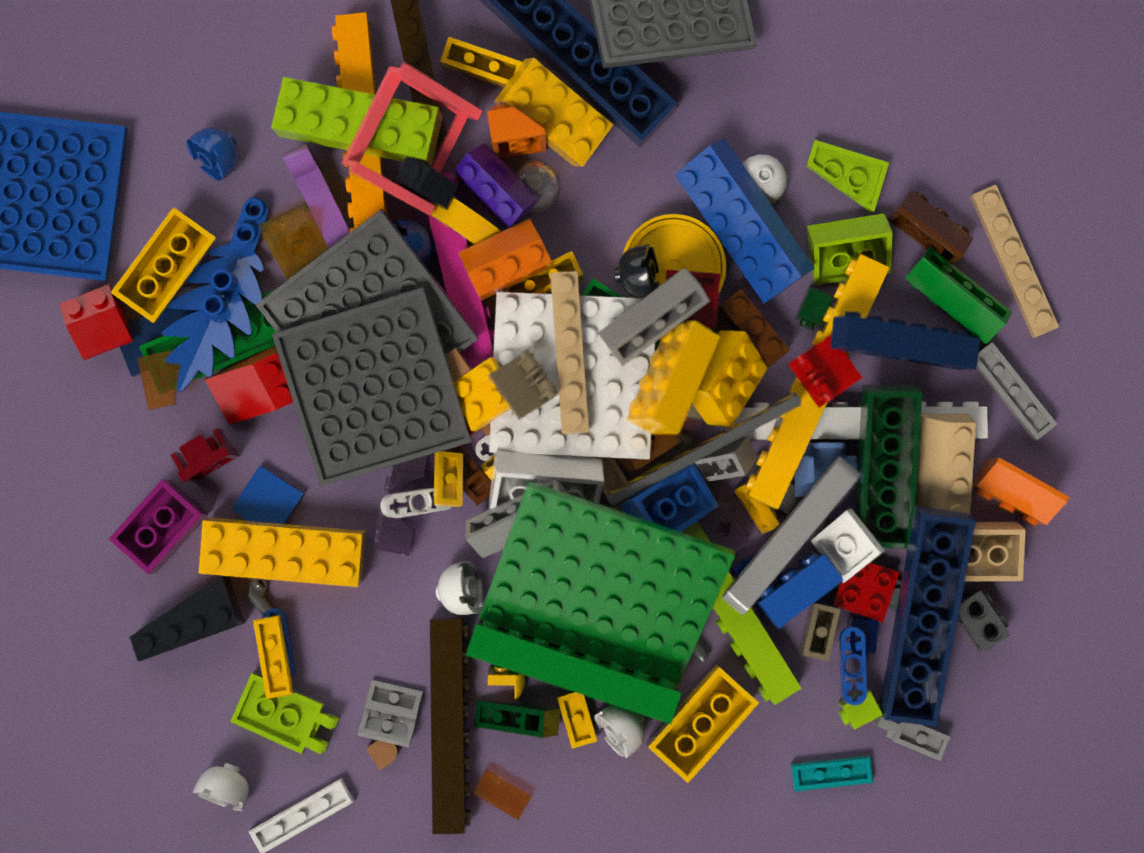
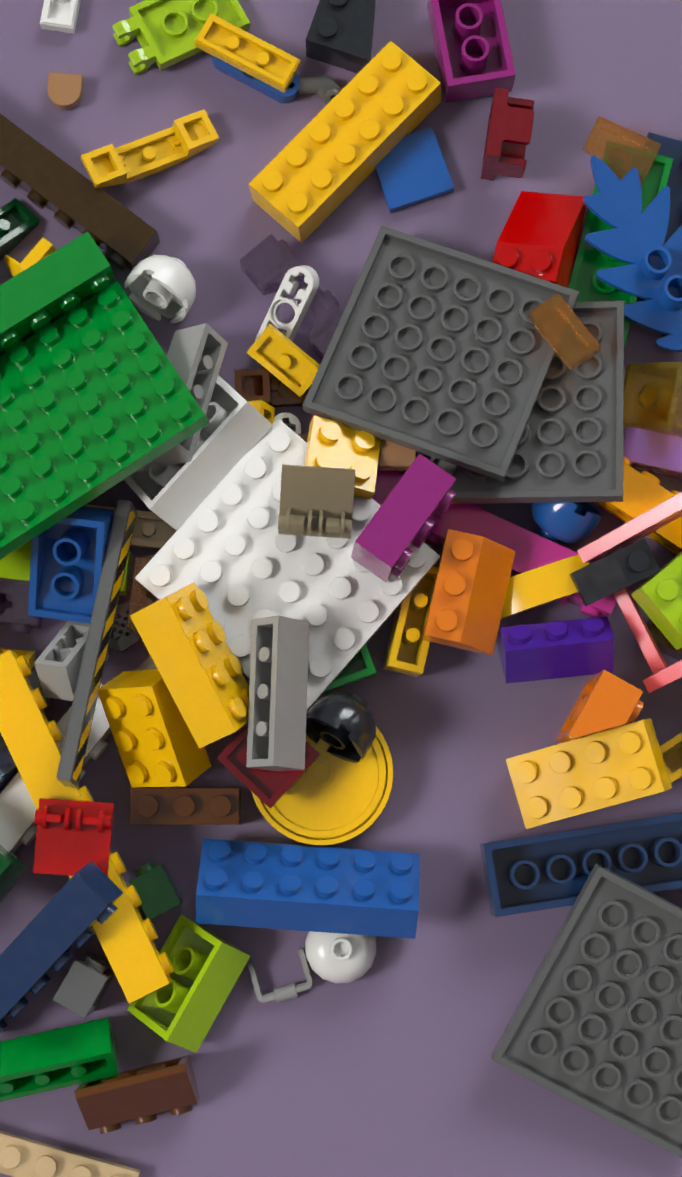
camera: 130 degrees right, 5 degrees down
(305, 321) = (564, 331): none -> clear orange tile
(381, 666) = (152, 153): none -> yellow slope
(390, 713) = (96, 120): light grey slope -> none
(494, 323) = (404, 519): none -> magenta brick
(542, 181) = (525, 704): clear cylinder -> none
(569, 352) = (313, 579): tan plate -> none
(809, 191) = (285, 992): none -> light grey piece
(849, 172) = (272, 1053): lime wing -> none
(898, 303) = (85, 985): none -> dark grey brick

